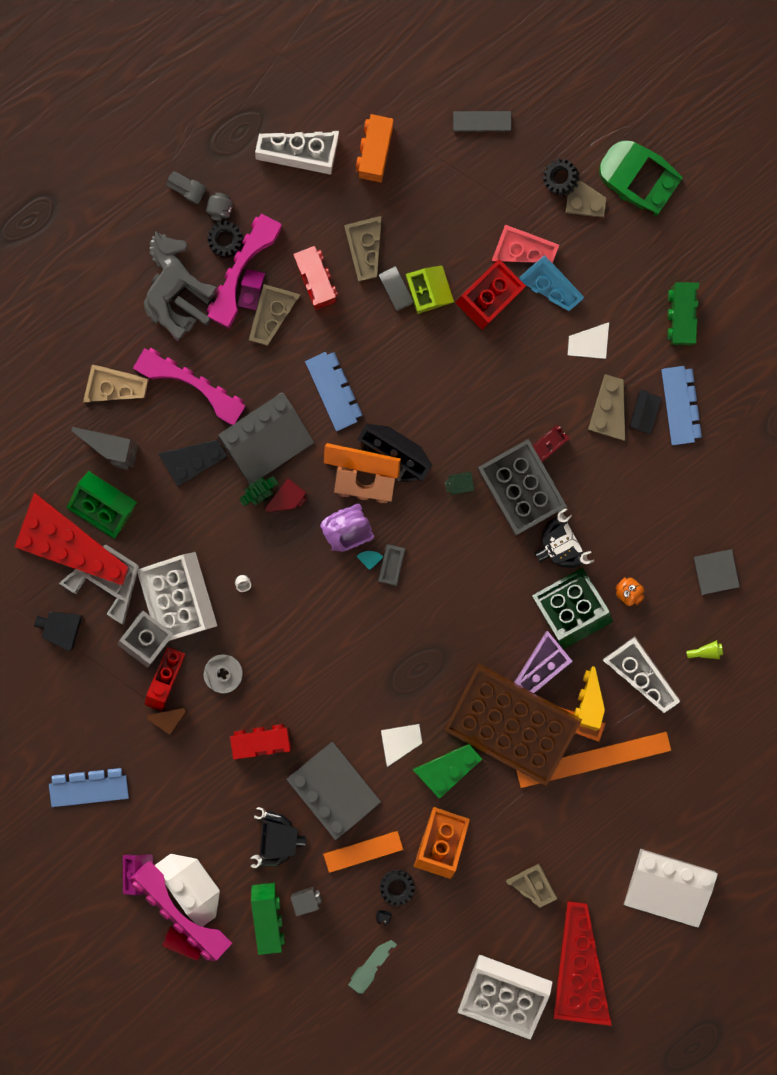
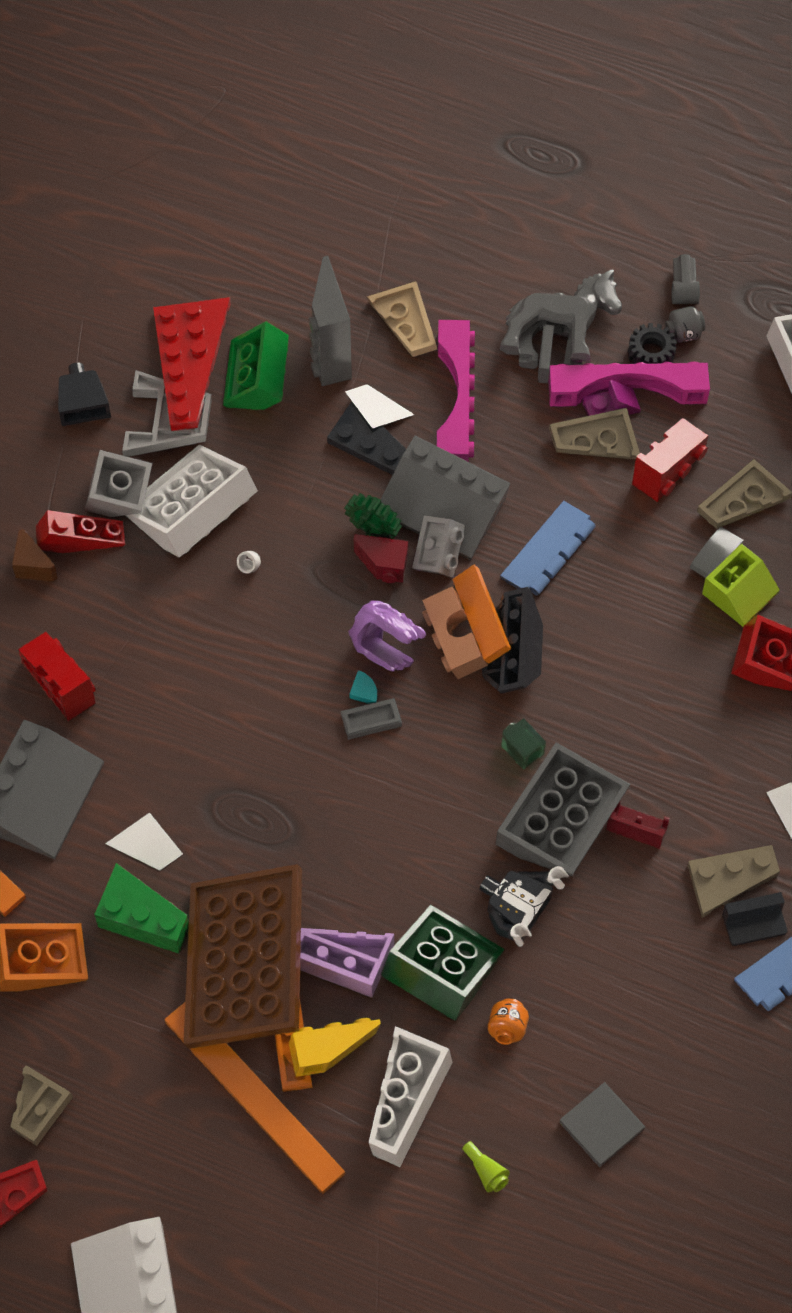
camera: 60 degrees right, 25 degrees down
(171, 442) = (376, 407): none -> white sticker
(218, 683) = (126, 608): light grey plate -> none
(299, 460) = (438, 546): none -> light grey bracket

